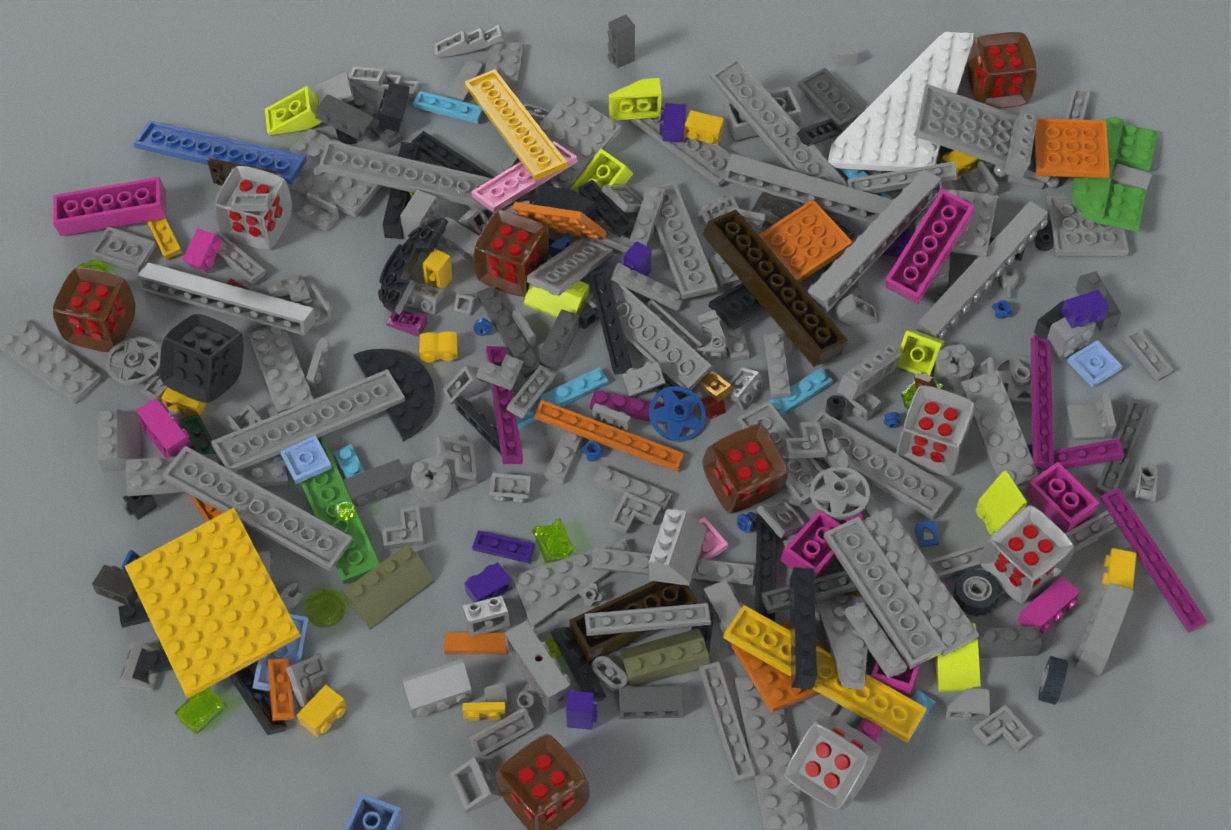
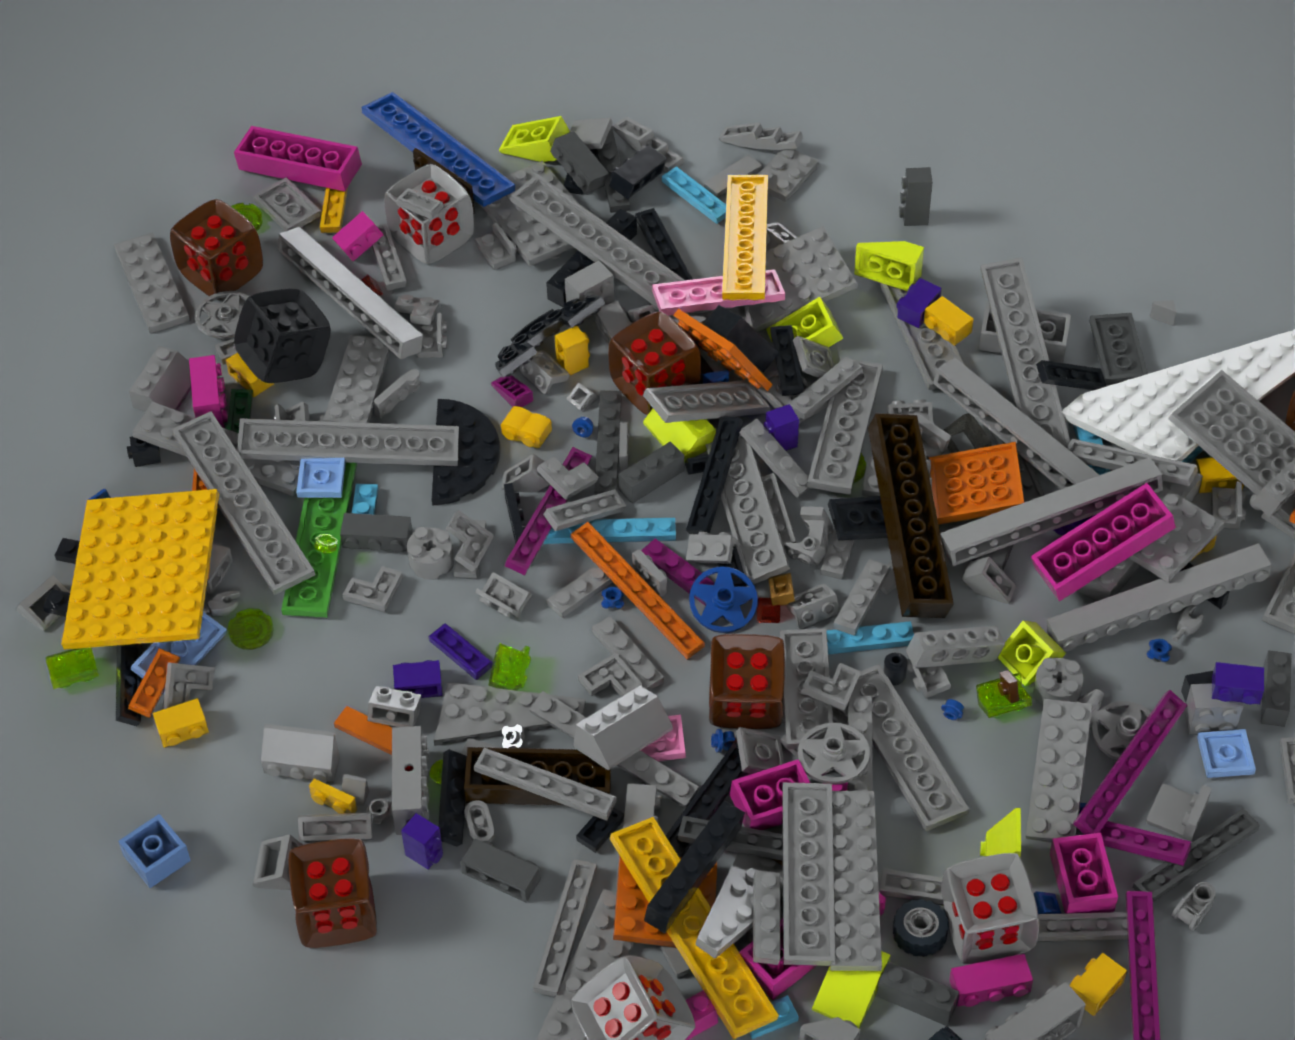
camera: 30 degrees right, 5 degrees down
(115, 585) = (70, 513): clear smoke brick -> none
(388, 586) = (321, 635): olive slope -> none
(664, 657) = (543, 834): olive slope -> none
(927, 533) = (909, 843): blue slope -> none
(935, 430) = (983, 737): light grey piece -> none
(1045, 233) = (1265, 590): black plate -> none

